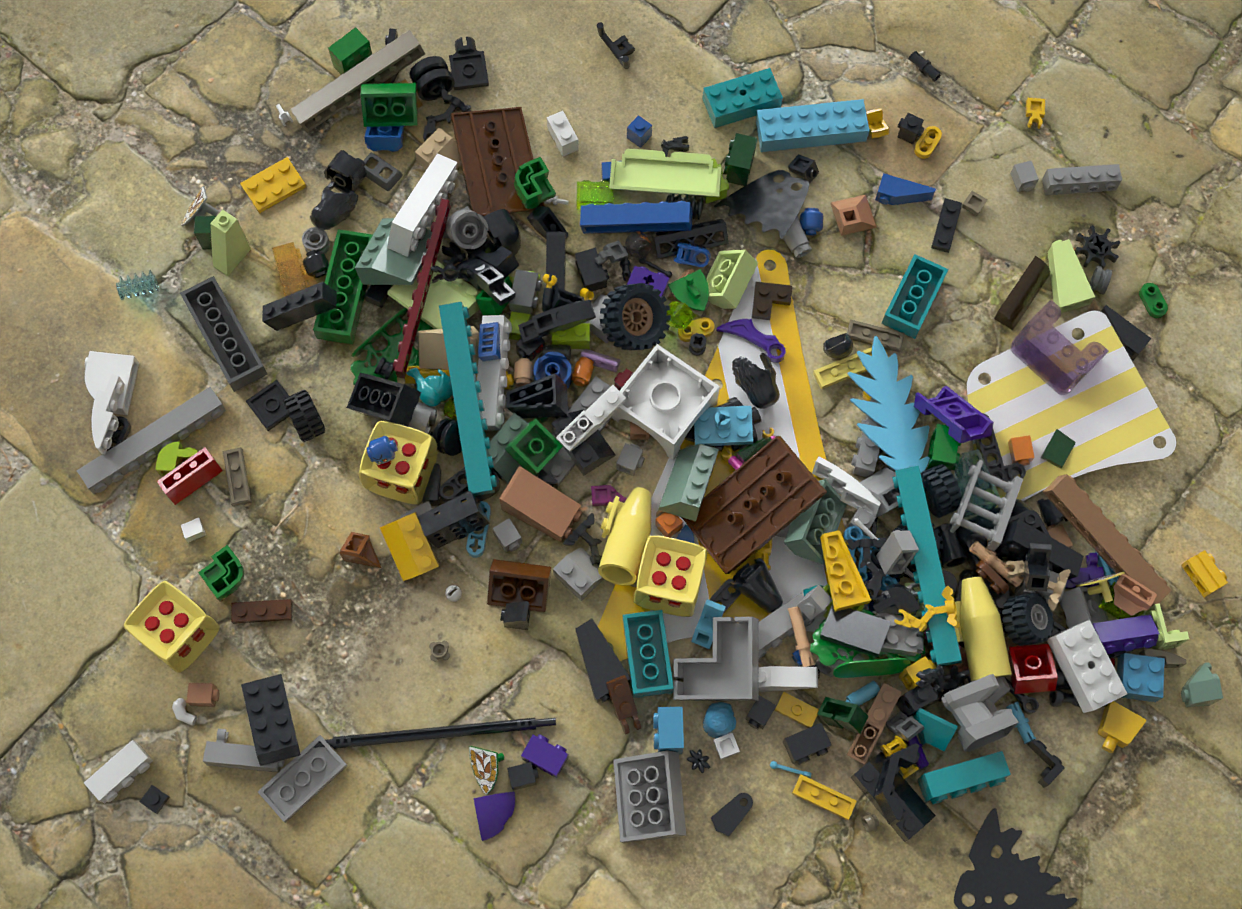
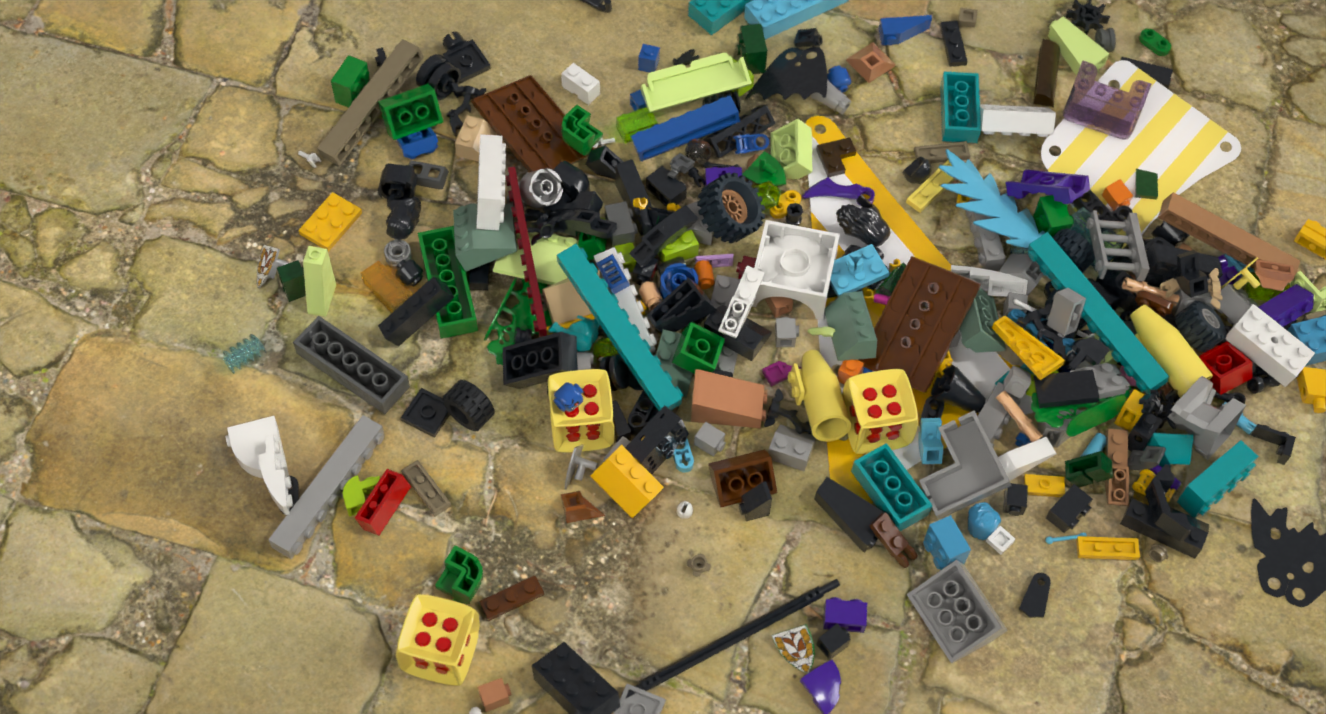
camera: 25 degrees left, 10 degrees down
(193, 530) = (408, 551): white slope -> none
(373, 512) = (582, 465): none -> light grey shield
(664, 474) = (824, 331): none -> yellowish green piece
(698, 760) = (983, 563): black plant -> none
(950, 608) = (1137, 336): yellow piece -> none
(961, 331) = (1017, 120): none -> white brick

